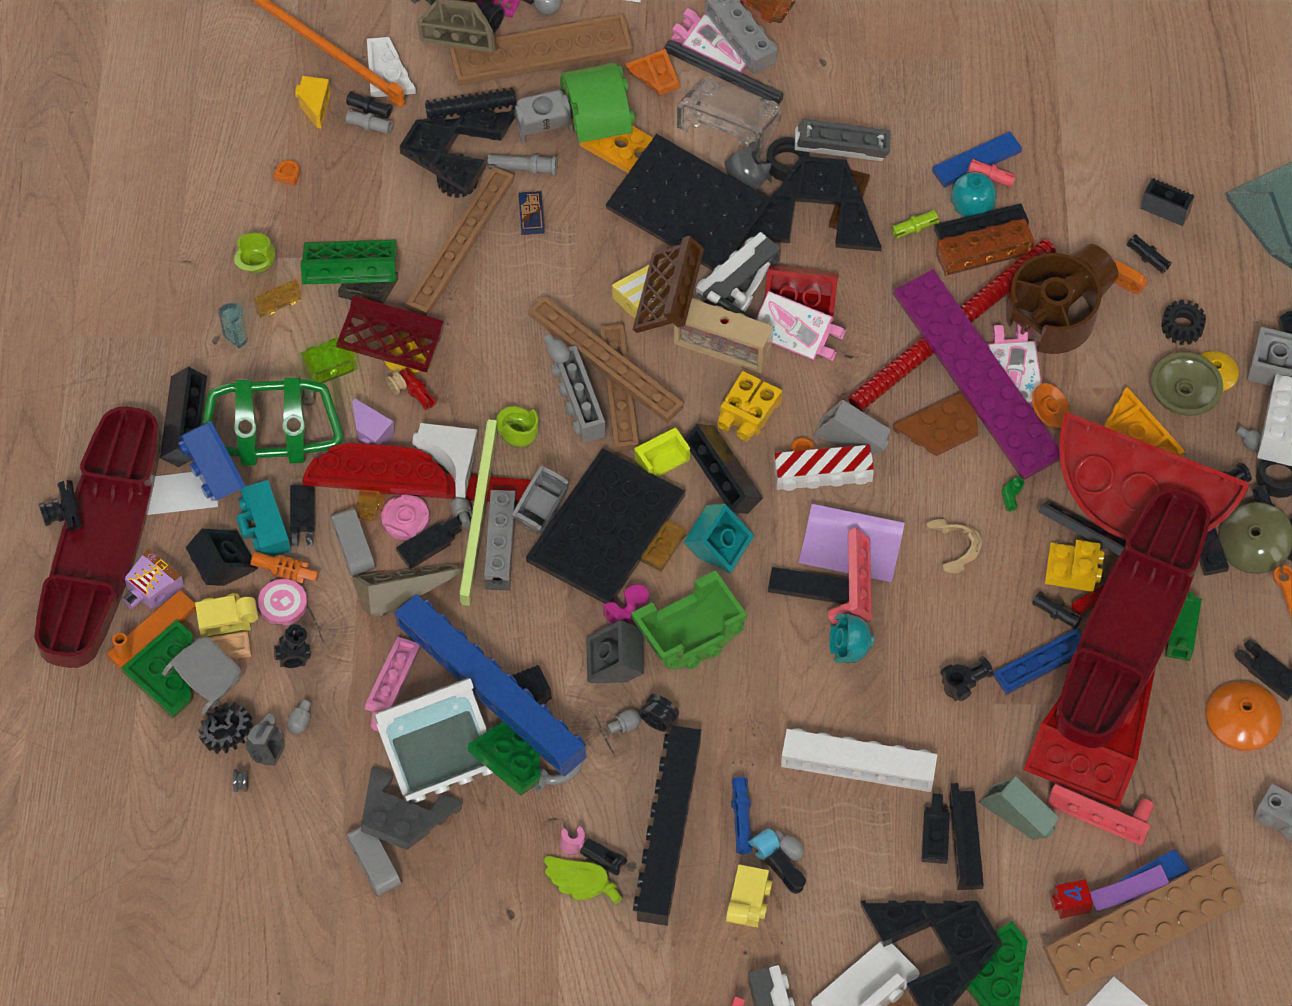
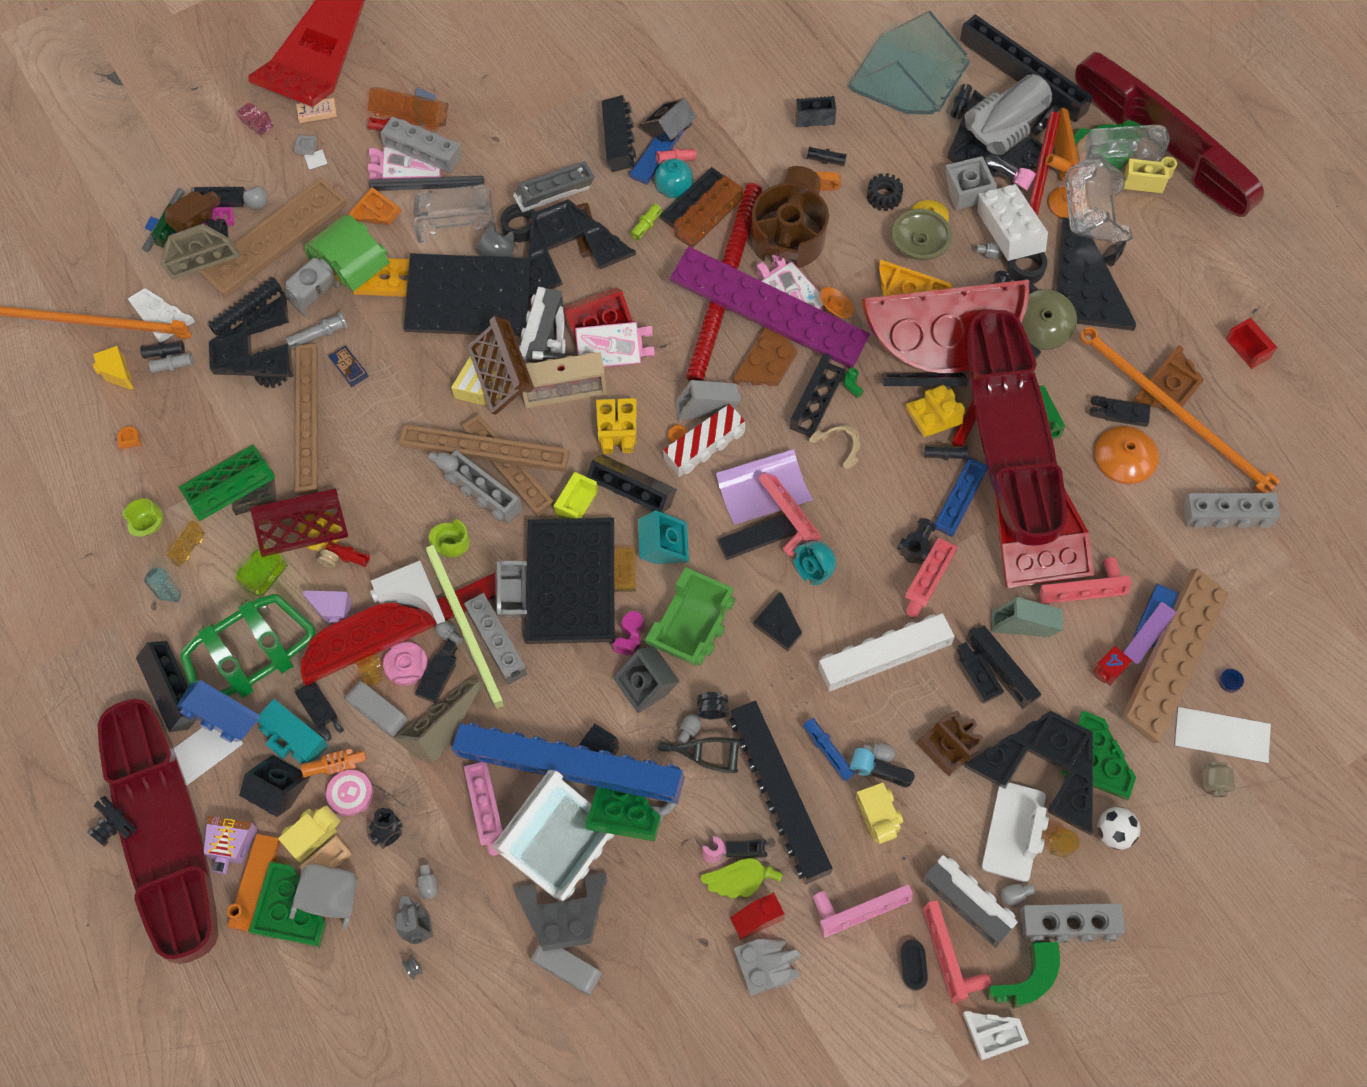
camera: 30 degrees left, 5 degrees up
(225, 728) = (371, 942): black gear -> none
(552, 964) = (766, 964): none -> light grey plate
(573, 919) = (758, 916): none -> red slope
(618, 744) = (697, 752): none -> pearl dark grey piece
(646, 968) = (834, 923): none -> bright pink piece
(776, 677) = (779, 623): none -> black wing
(862, 875) = (951, 742): none -> reddish brown plate
(946, 120) = (618, 133): none -> black brick
(952, 713) = (929, 576): none -> coral piece
(960, 479) = (811, 391): none -> black fence
(1007, 133) = (669, 120): none -> slope
(1185, 983) = (1231, 680): none -> clear blue tile

